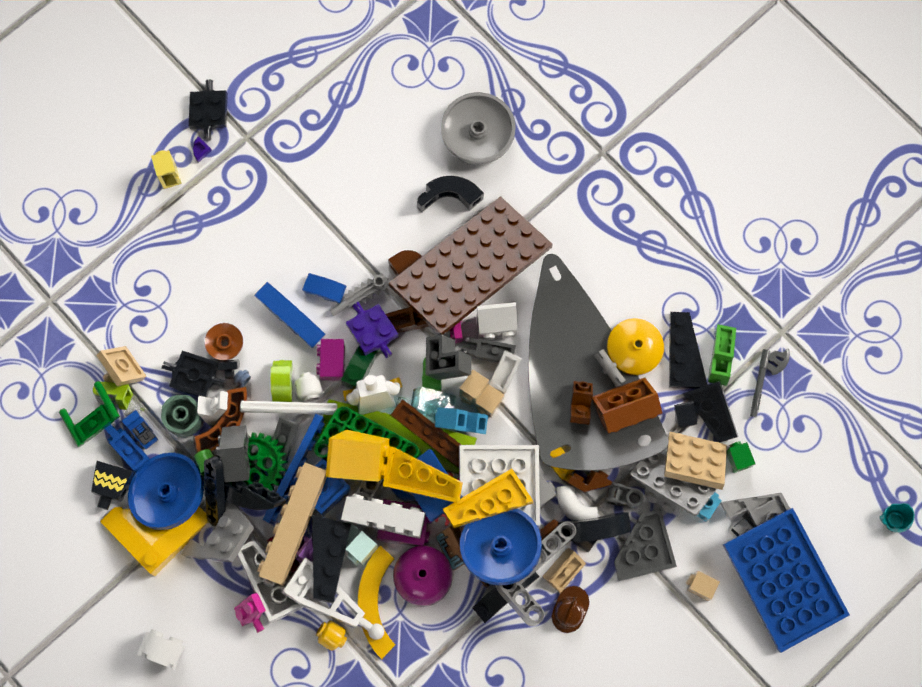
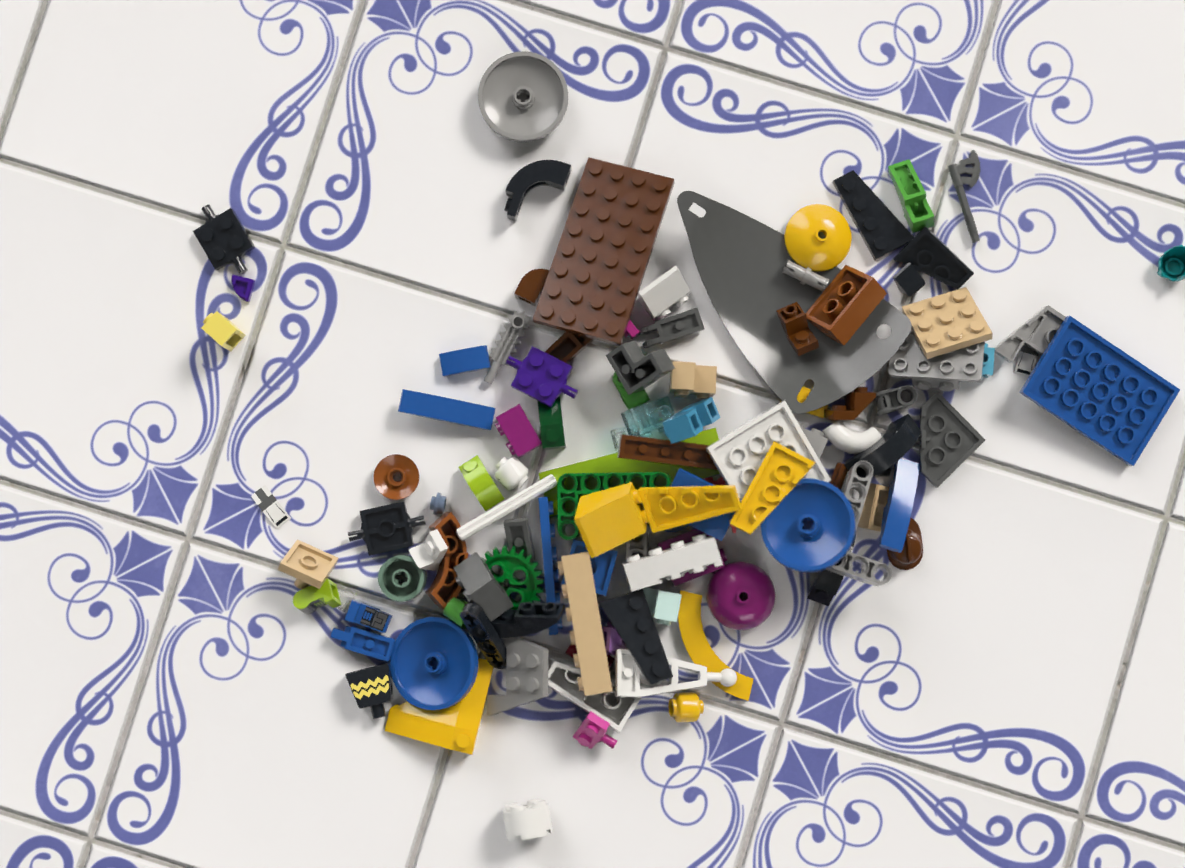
camera: 30 degrees left, 10 degrees up
(95, 421) = (316, 637): green plate -> none
(122, 312) = (270, 507): none -> white sticker
(229, 366) = (418, 499): black tile -> none
(373, 393) = (584, 443): white torso -> none
(450, 545) = (753, 549): panel -> none
(505, 371) = (702, 341): white tile -> none
(582, 576) = (899, 505): none -> blue slope
(702, 585) = (1021, 444): tan brick -> none
(740, 456) = (987, 292): green brick -> none

